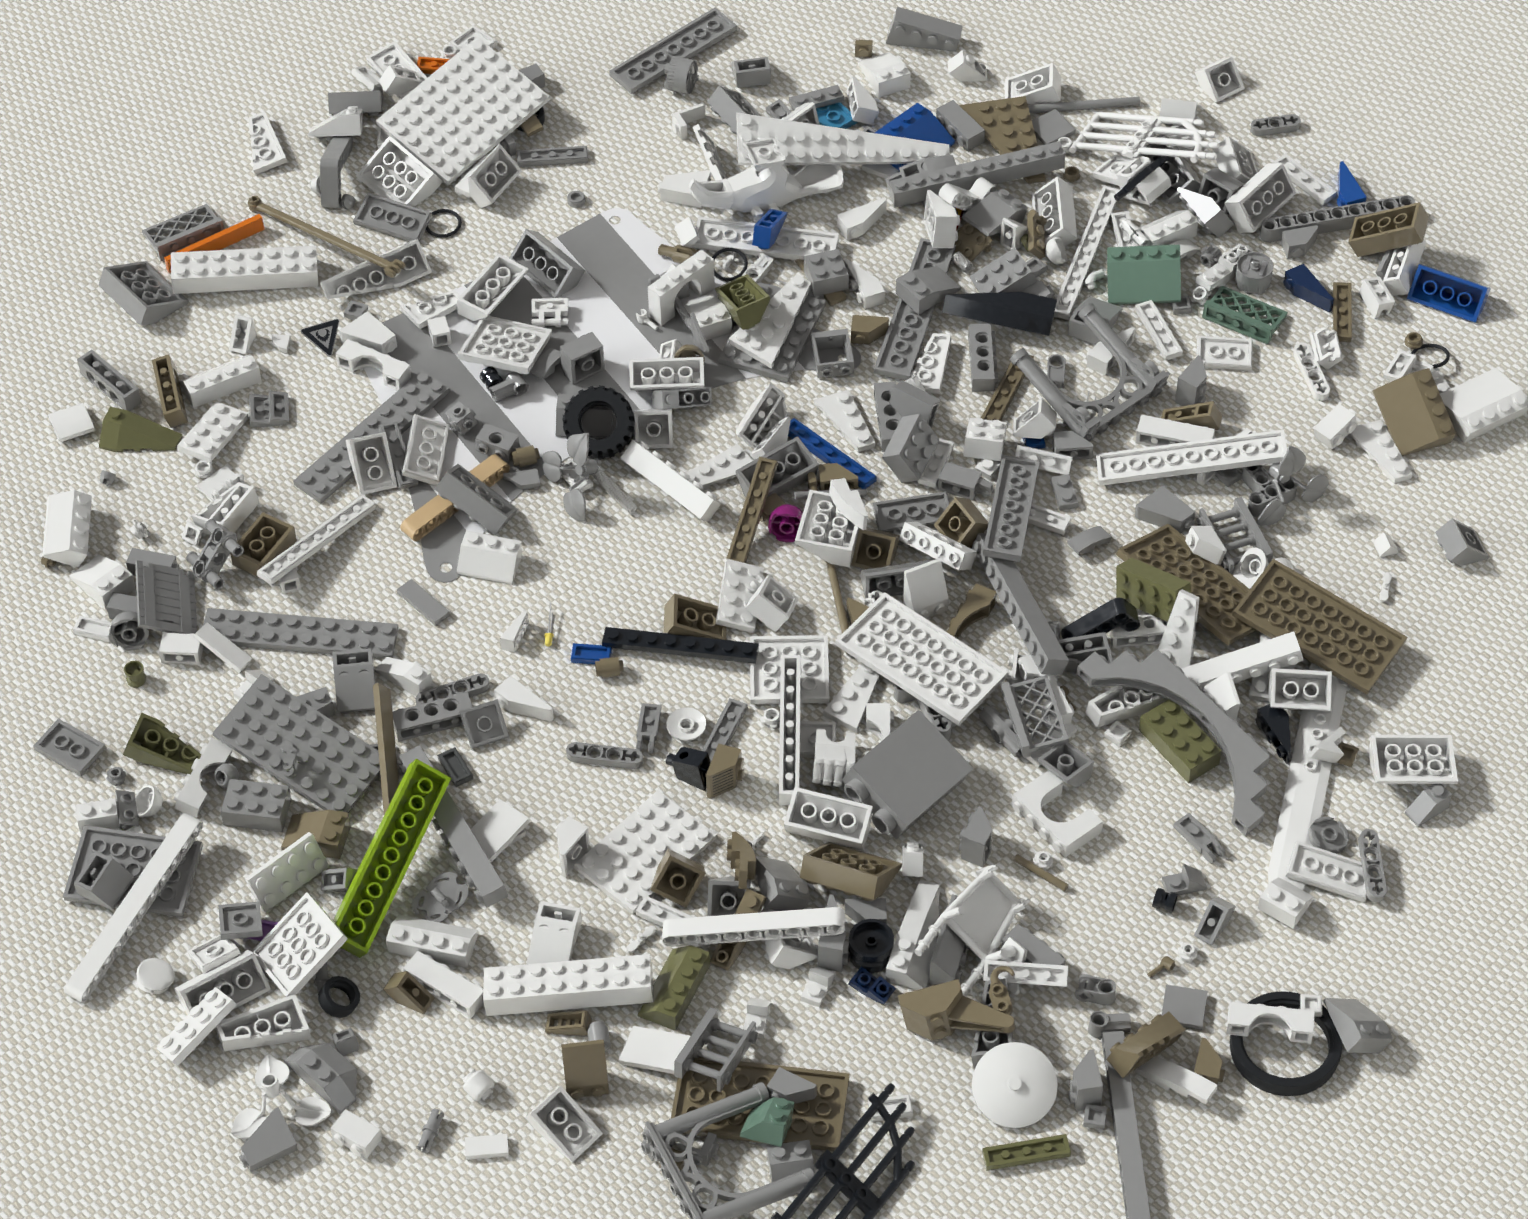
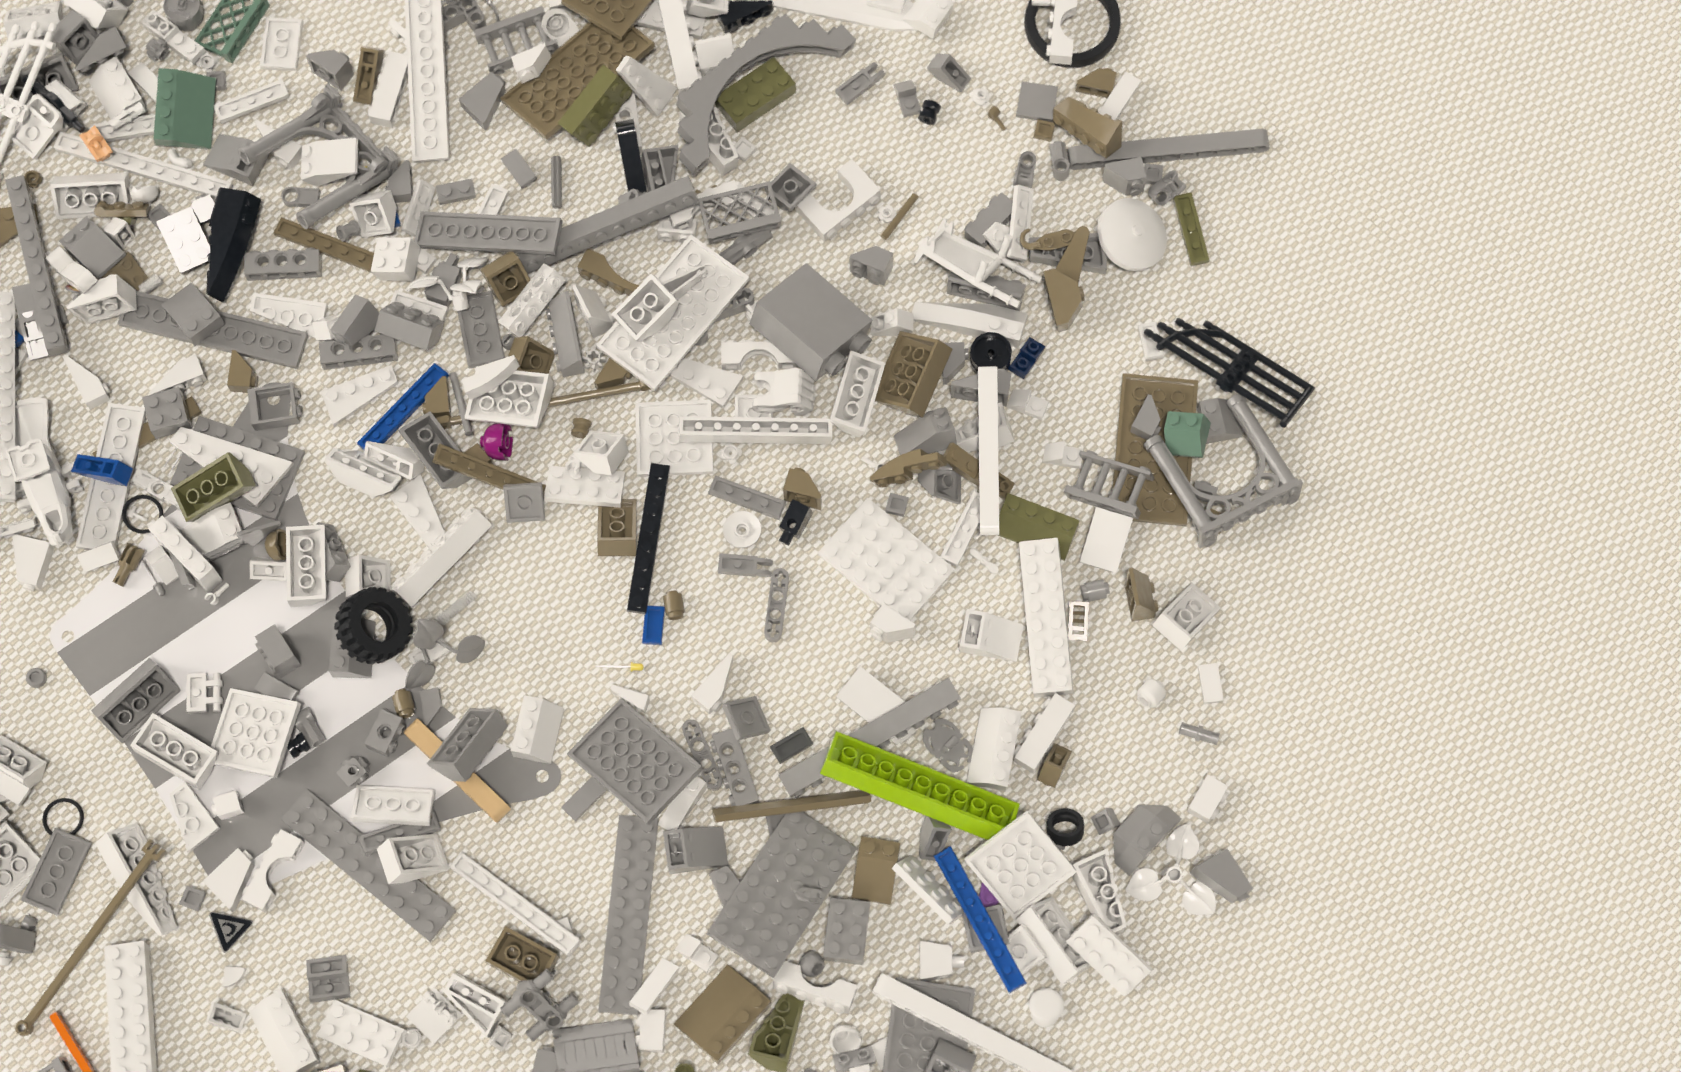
camera: 90 degrees left, 20 degrees up
(186, 706) = (723, 1014): none -> dark tan slope
(216, 881) = (937, 961): none -> white torso
(245, 912) = (980, 920): none -> blue tile
(445, 629) = (635, 761): none -> light grey plate
(677, 878) = (922, 526): dark tan slope -> none
(708, 859) = (897, 504): none -> light grey plate
(723, 544) = (524, 502): none -> light grey tile
(802, 591) = (581, 427): none -> dark tan wheel
(920, 623) = (654, 303): none -> white slope
(944, 483) = (460, 291): none -> white plant
(1017, 404) = (348, 230): none -> light grey bush
(1073, 1125) = (1167, 187): none -> light grey piece
(1076, 573) = (556, 182): none -> light grey axle
(1089, 381) = (329, 160): none -> white slope
(1102, 209) = (96, 144): none -> light nougat hips
(1147, 1012) = (1044, 130): none -> dark tan tile

